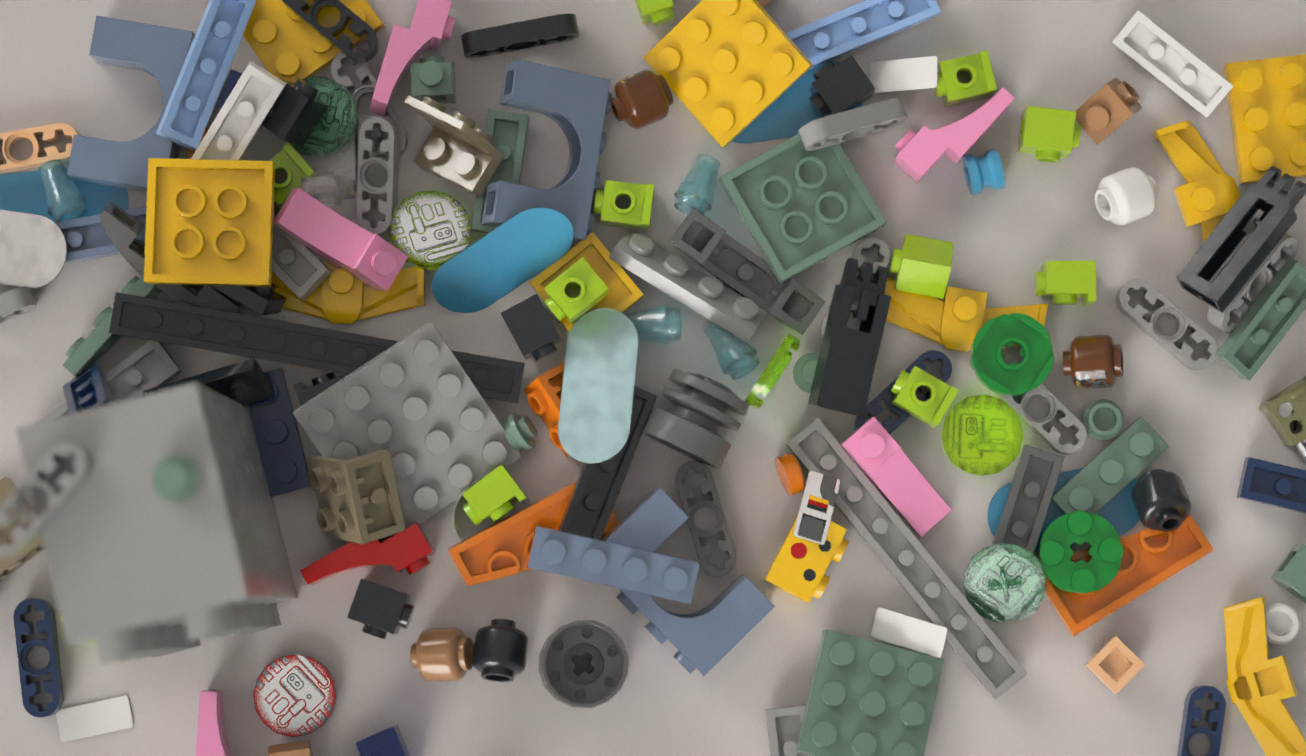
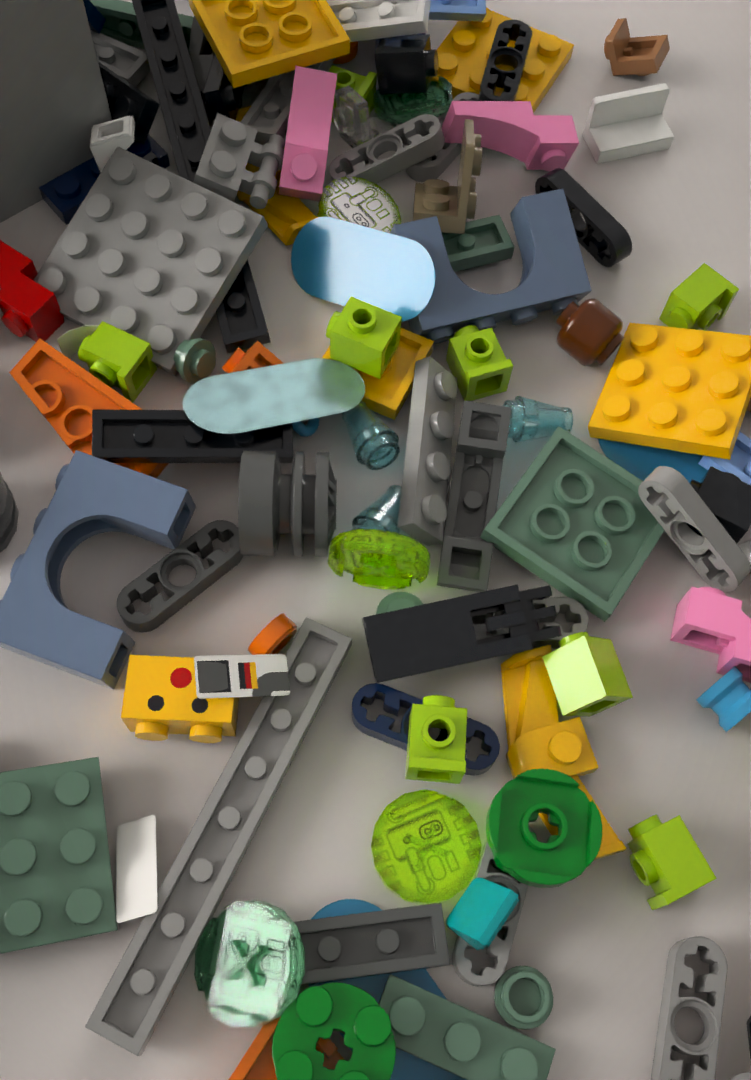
camera: 60 degrees right, 20 degrees down
(275, 414) = (109, 136): none -> white slope
(339, 323) = (226, 157): none -> light grey plate
(357, 497) = (59, 233): dark tan bracket -> none
(434, 79) = (503, 163): sand green brick -> none
(532, 328) = (303, 322): black brick -> none
(613, 564) = (76, 477): sand blue plate -> none
(895, 476) = (324, 758): bright pink slope -> none
(1045, 422) = (481, 912): none -> teal slope
(1093, 361) = (590, 945): reddish brown head -> none

